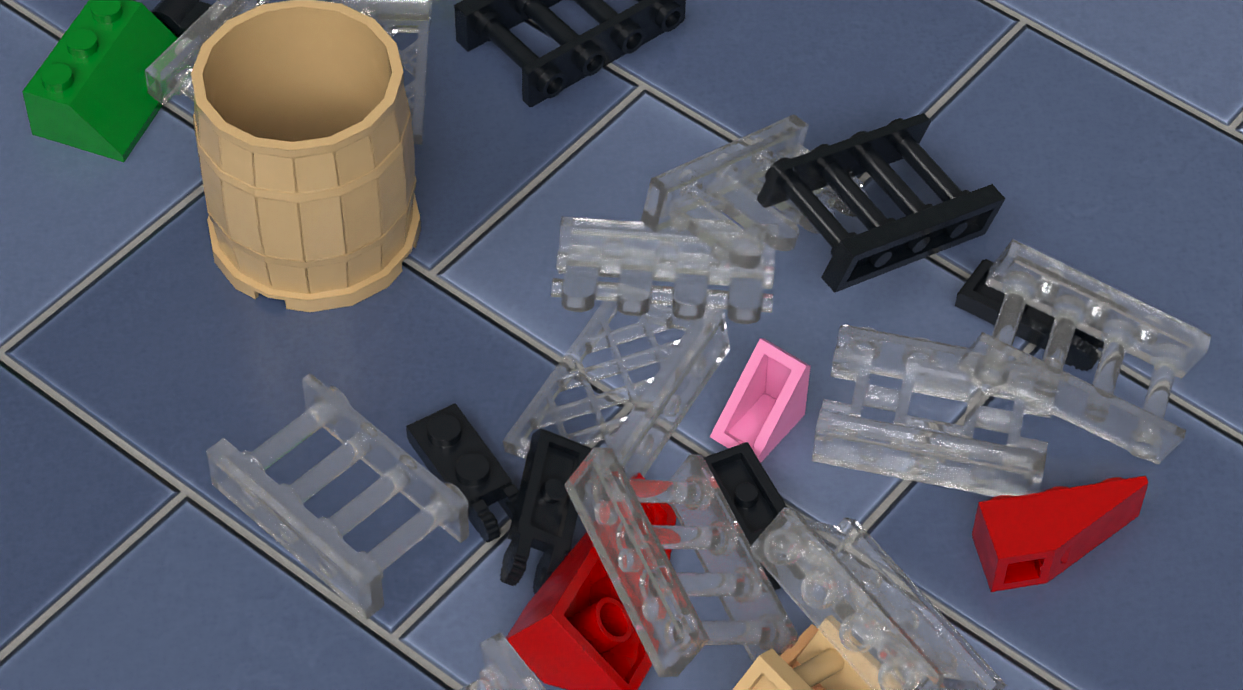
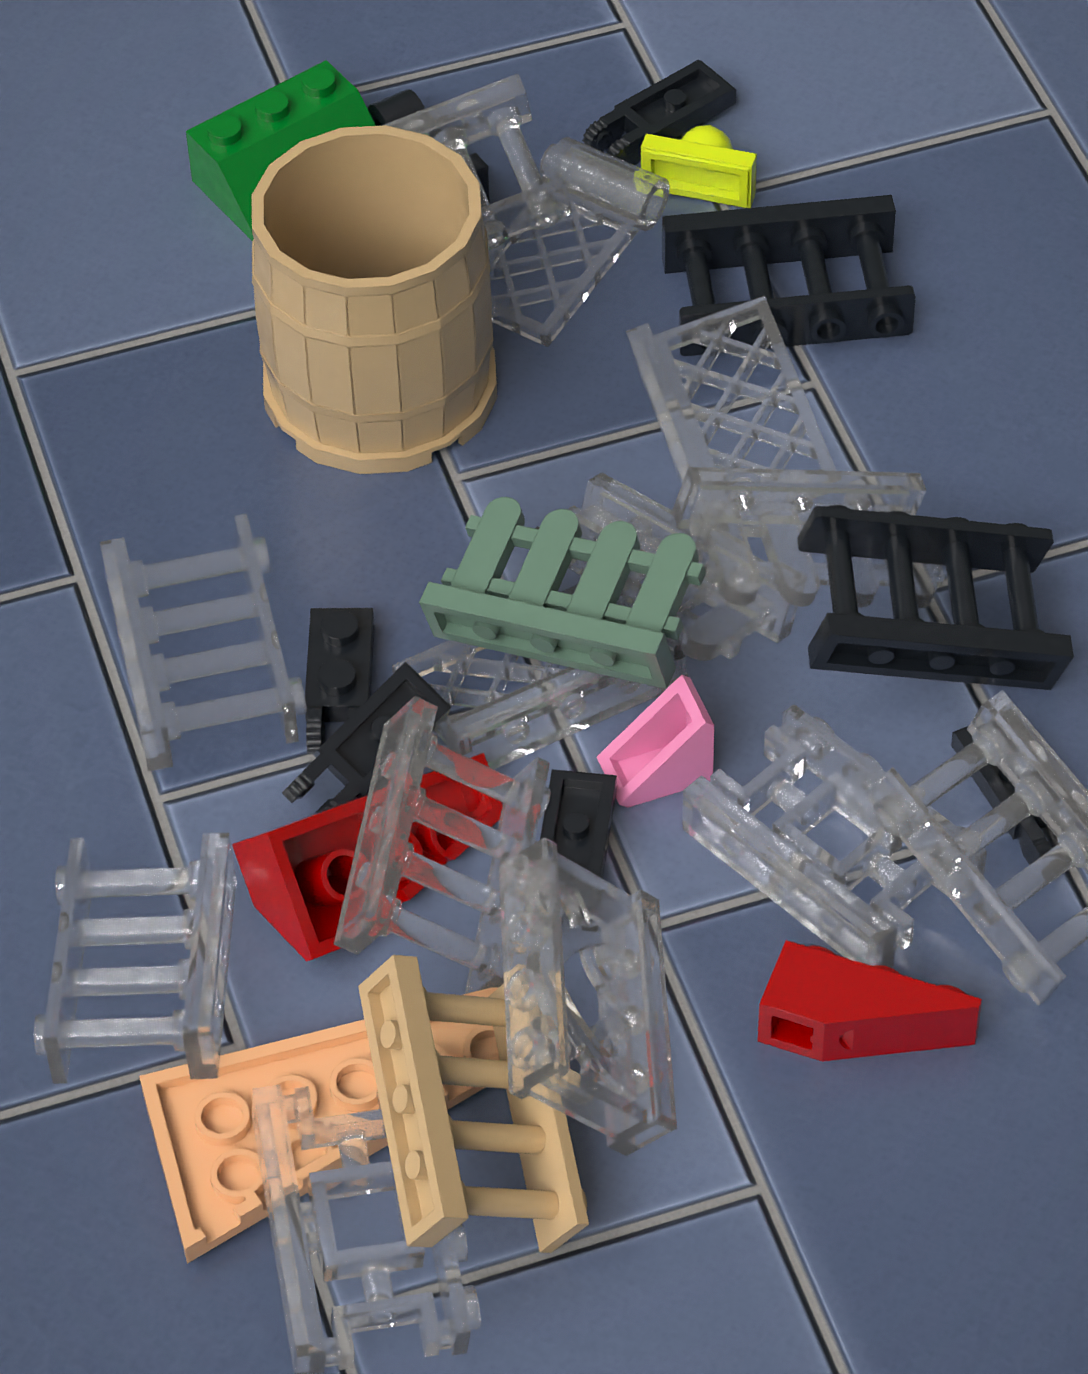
camera: 35 degrees right, 0 degrees up
(582, 155) = (680, 417): none -> clear fence
(633, 346) = (559, 627): none -> sand green fence

